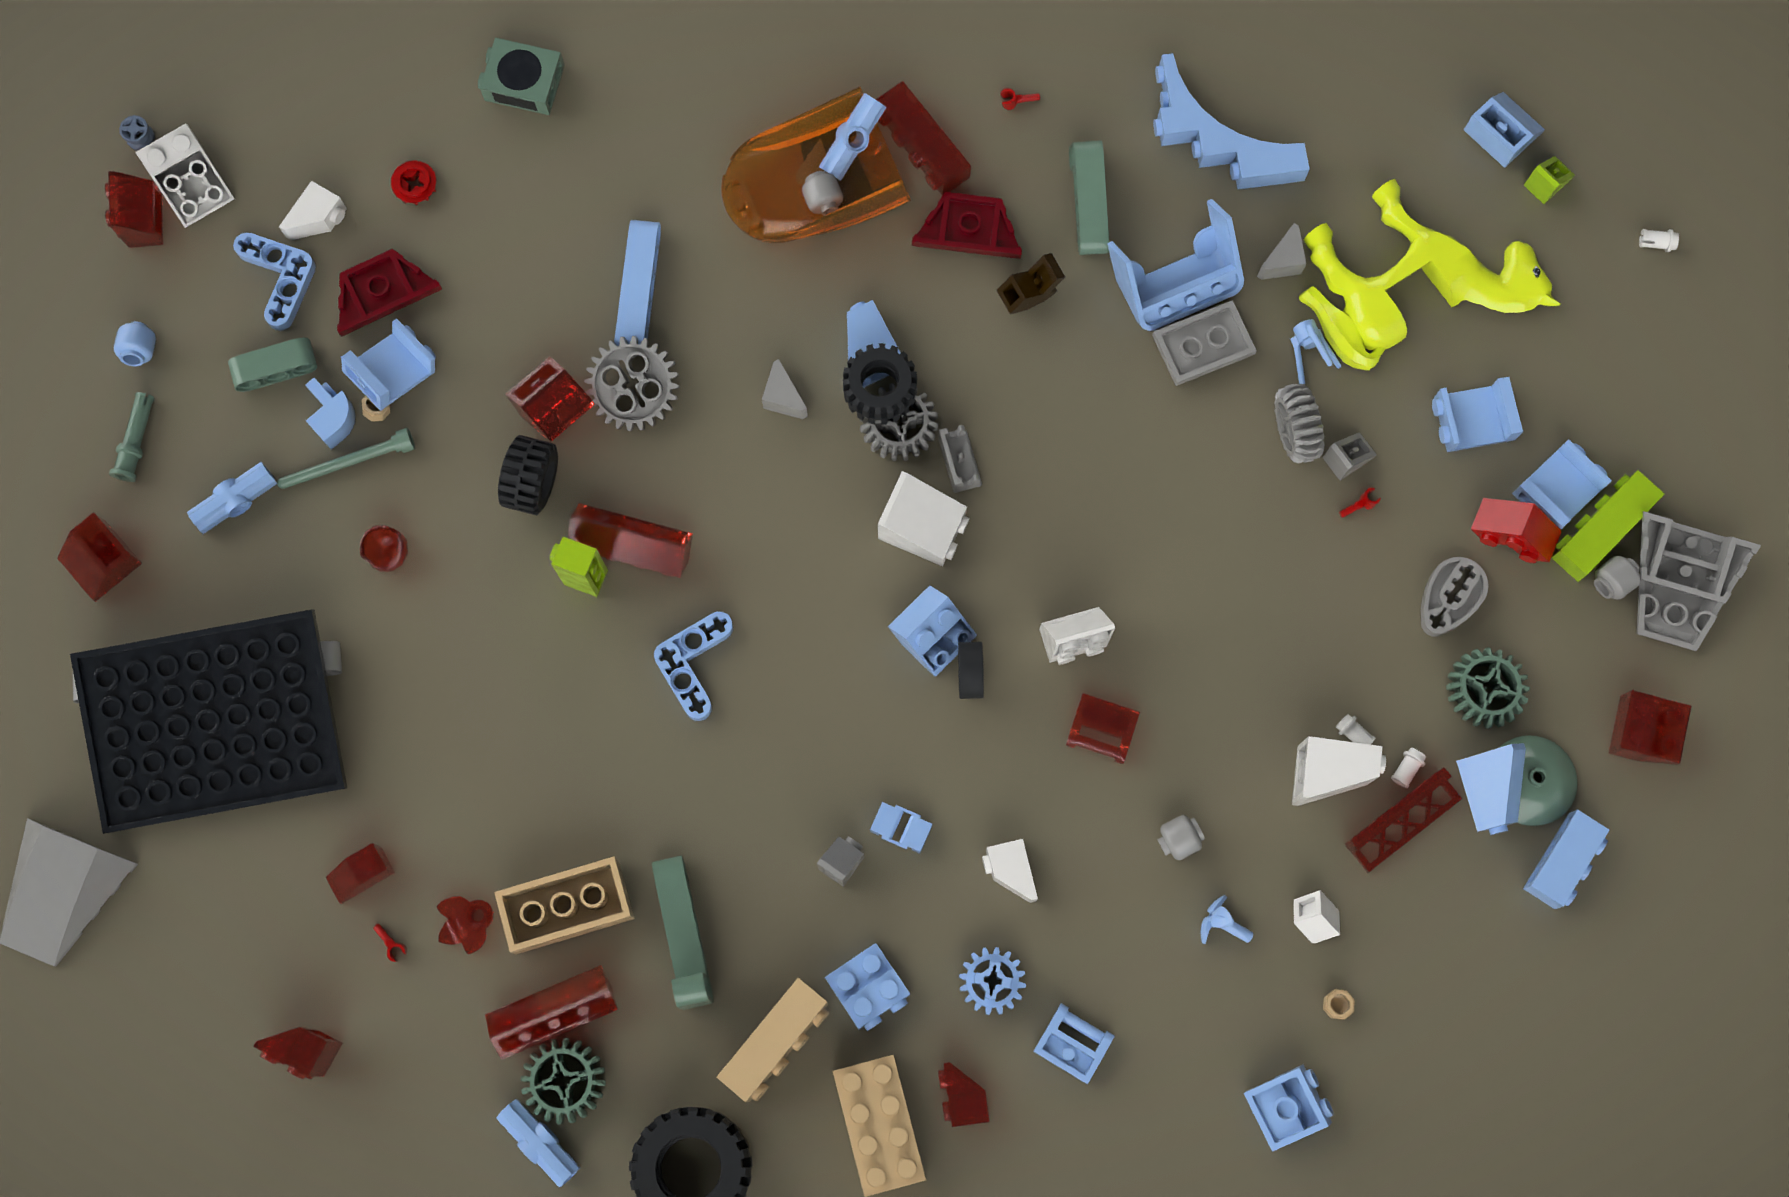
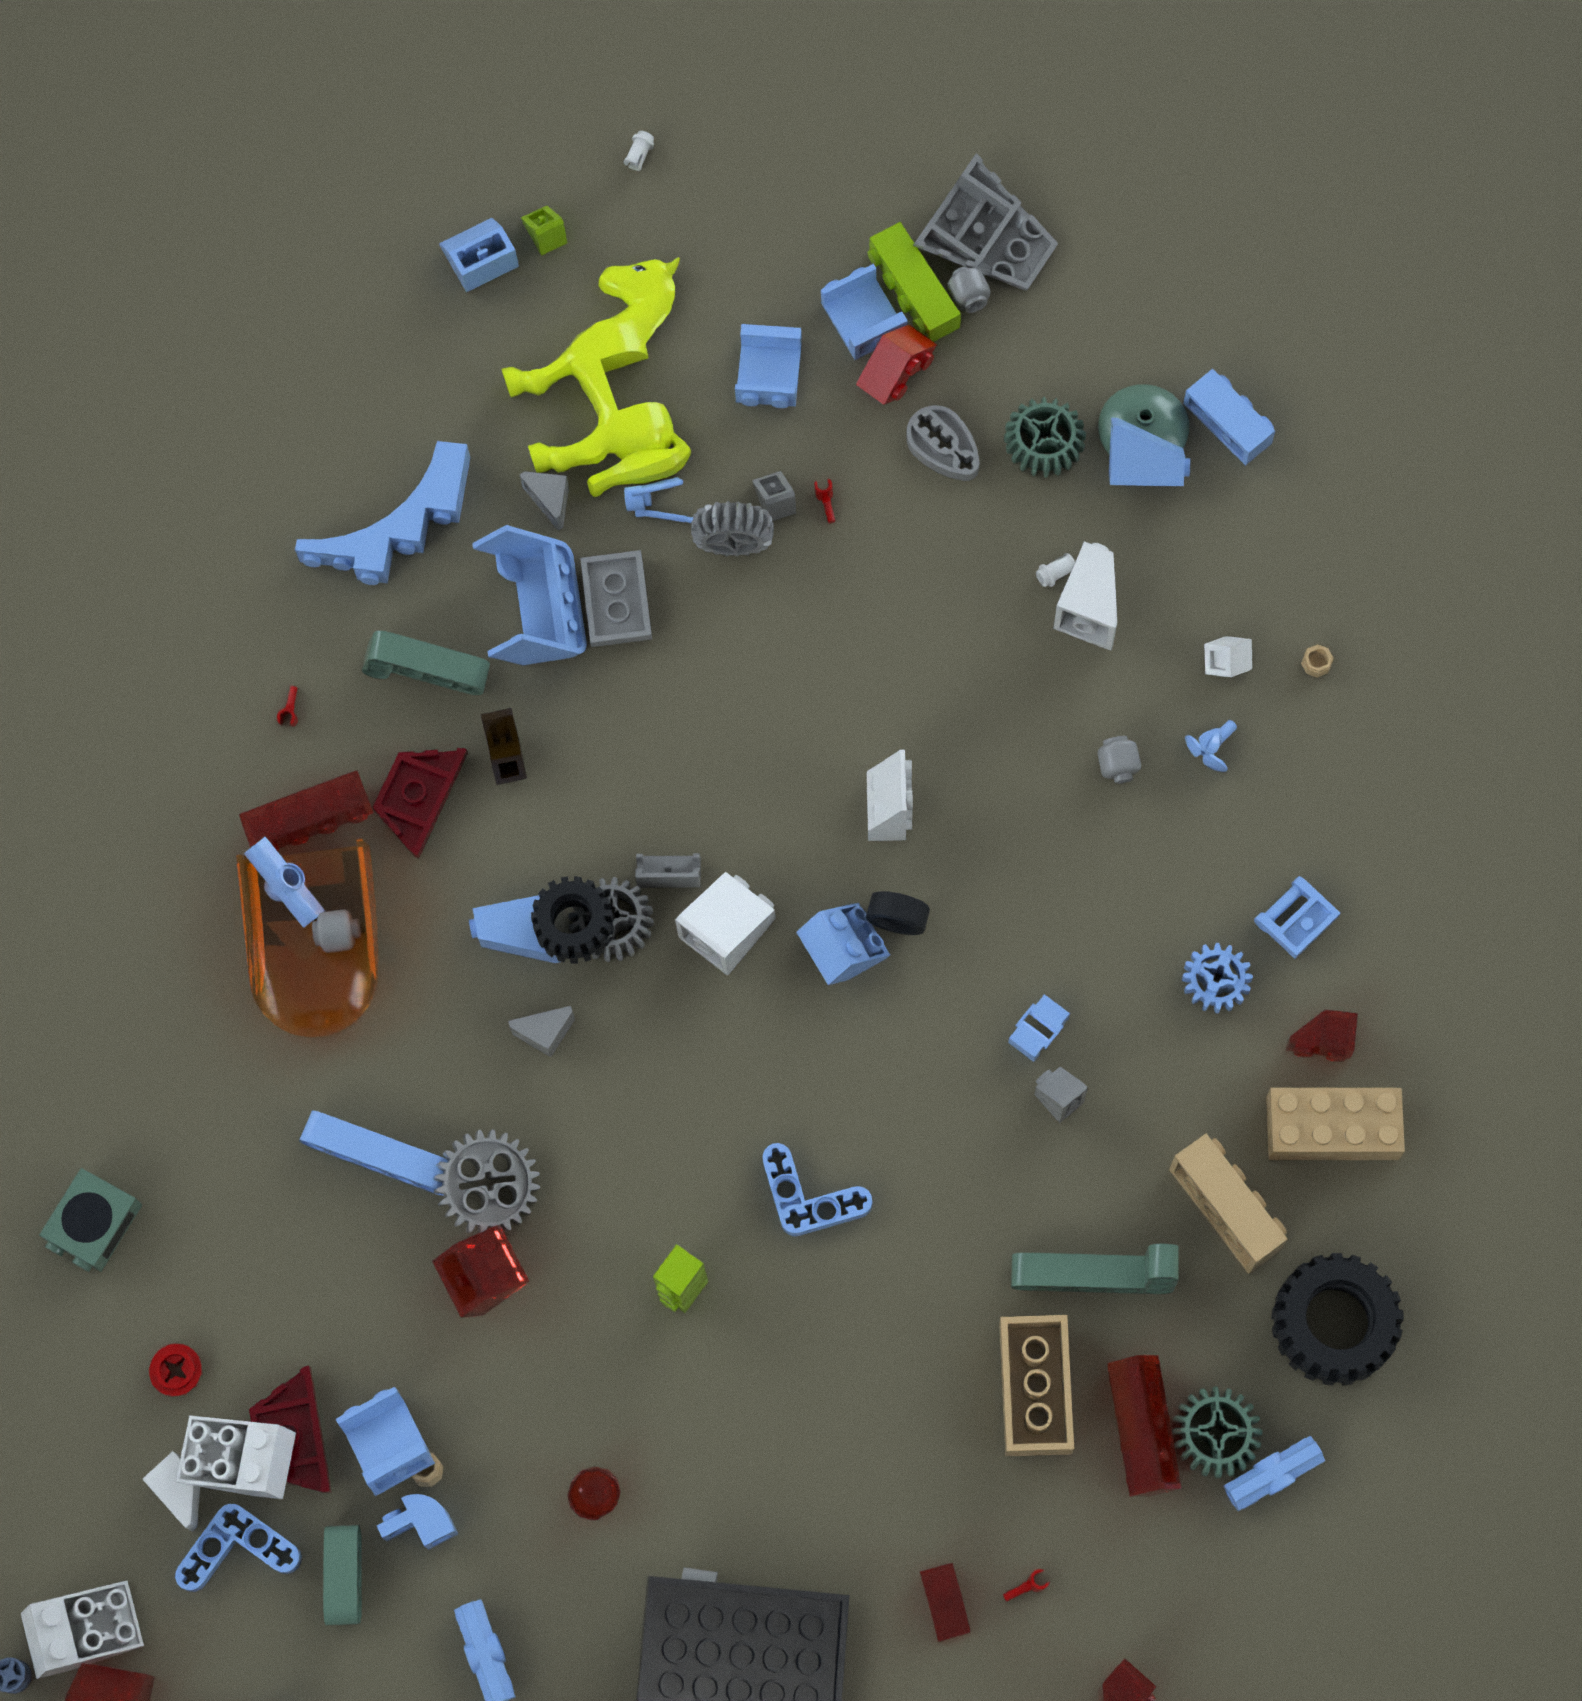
camera: 70 degrees left, 5 degrees down
(344, 248) = (236, 1456): none -> white slope
(400, 442) = (475, 1452): sand green piece -> none
(461, 923) = (1025, 1505): clear red plate -> none
(527, 475) = (560, 1312): black tyre -> none
(631, 540) = (660, 1224): clear red brick -> none
(868, 987) = (1194, 1101): light blue plate -> none
(1011, 868) = (1109, 929): white slope -> none
(1107, 719) = (979, 800): clear red plate -> none
(1289, 1107) = (1405, 732): light blue plate -> none
(1400, 809) = (1146, 554): clear red fence -> none
(1408, 768) = (1103, 531): white pin -> none
(1649, 728) = (1123, 306): clear red slope -> none

